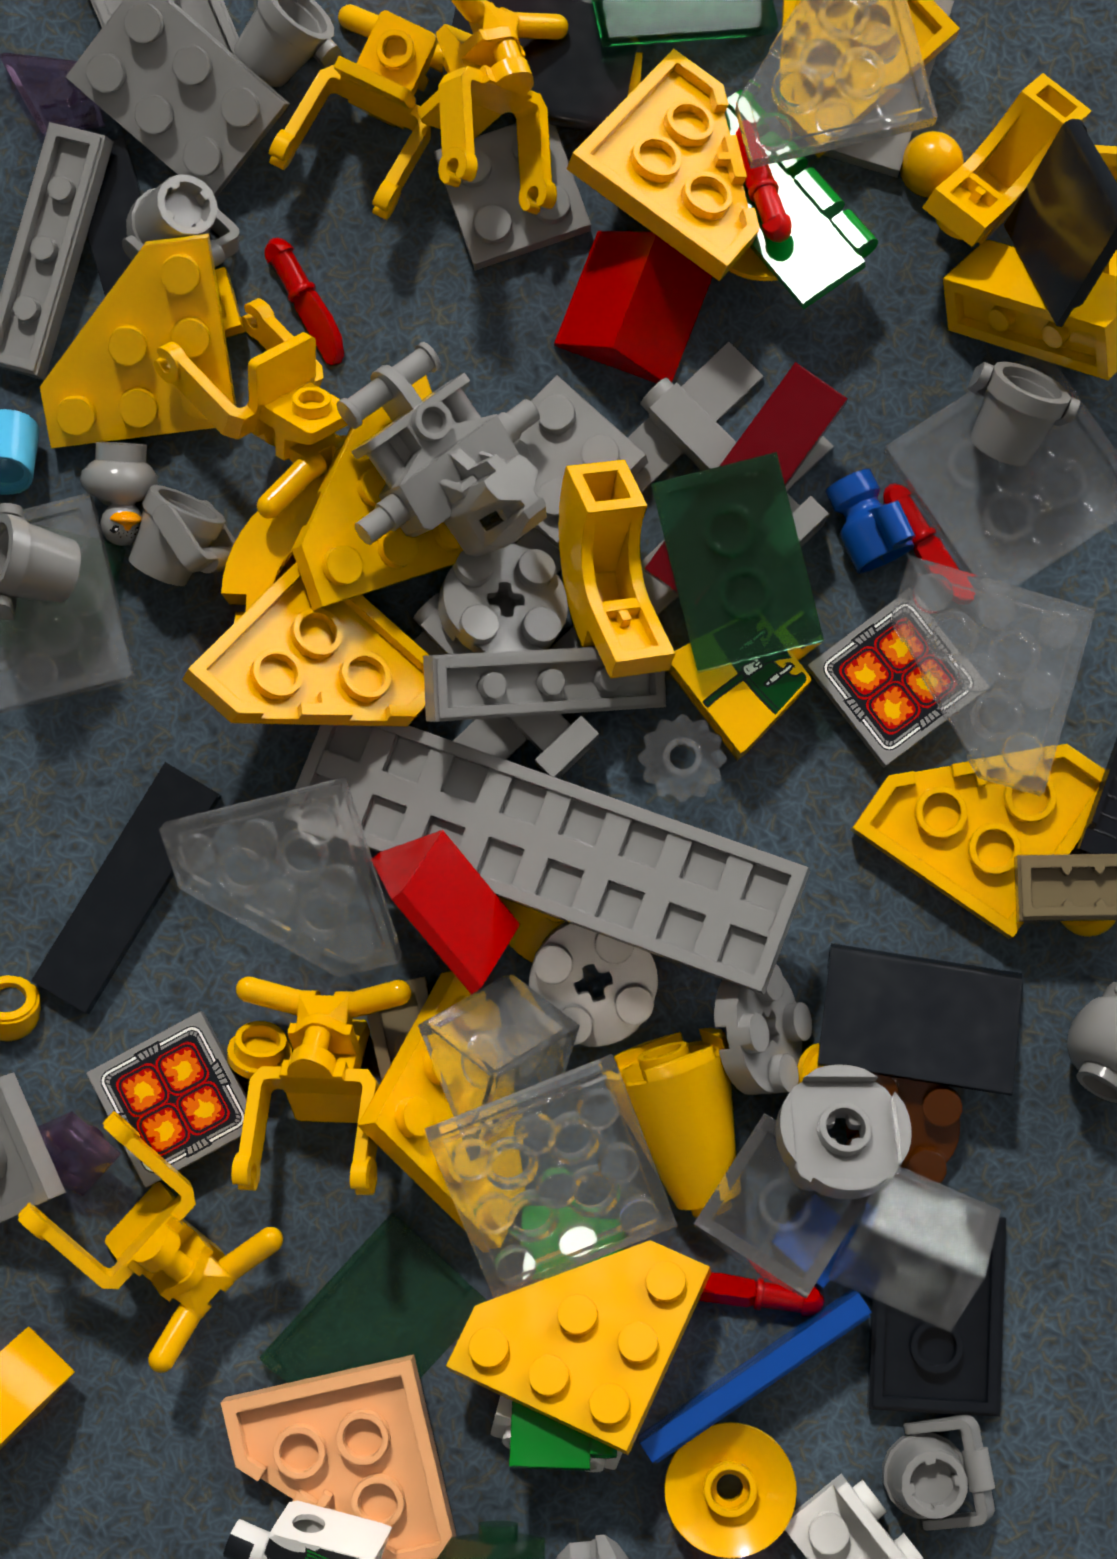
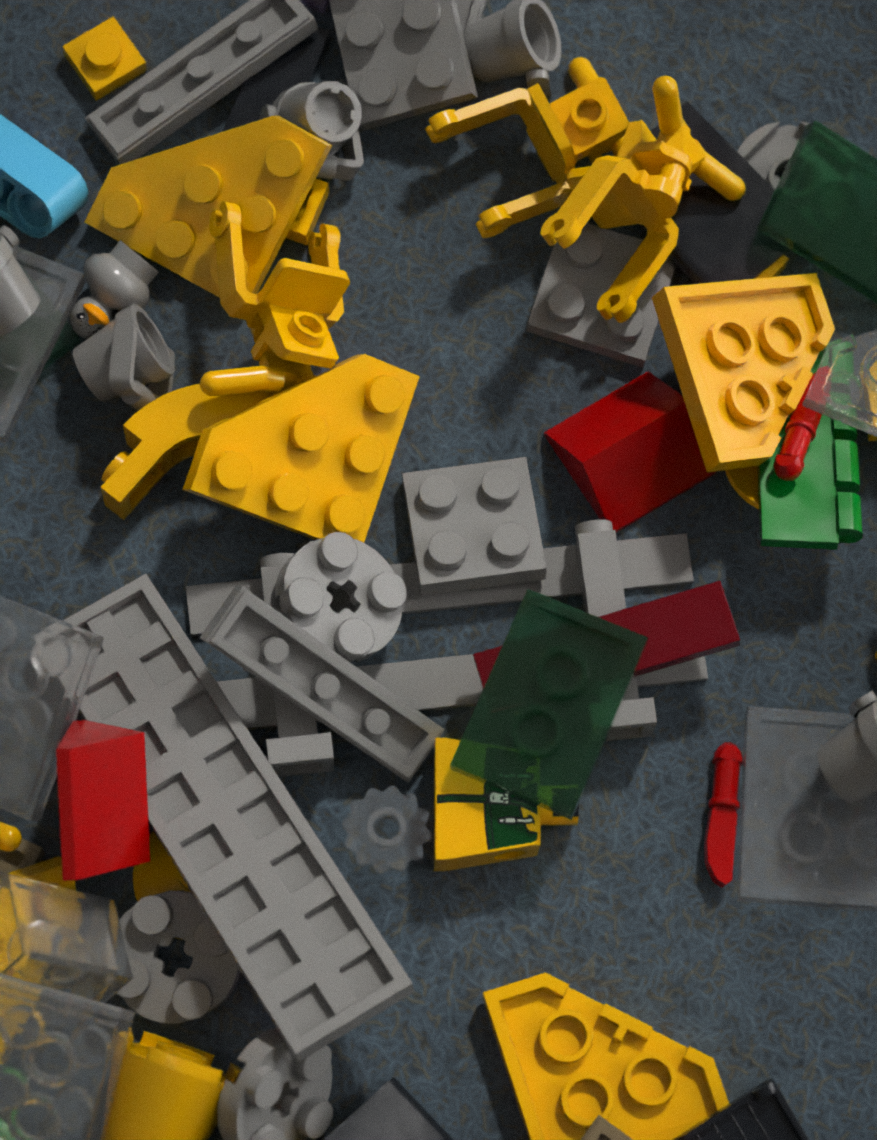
camera: 25 degrees right, 10 degrees down
(306, 300) = (374, 256): red piece -> none
(312, 665) = (145, 530): yellow plate -> none
(444, 459) = (375, 444): light grey piece -> none
(603, 570) = (441, 631): yellow arch -> none
(869, 526) = (687, 760): blue piece -> none
(878, 688) = (613, 900): tile -> none
(994, 664) = (700, 947): clear plate -> none

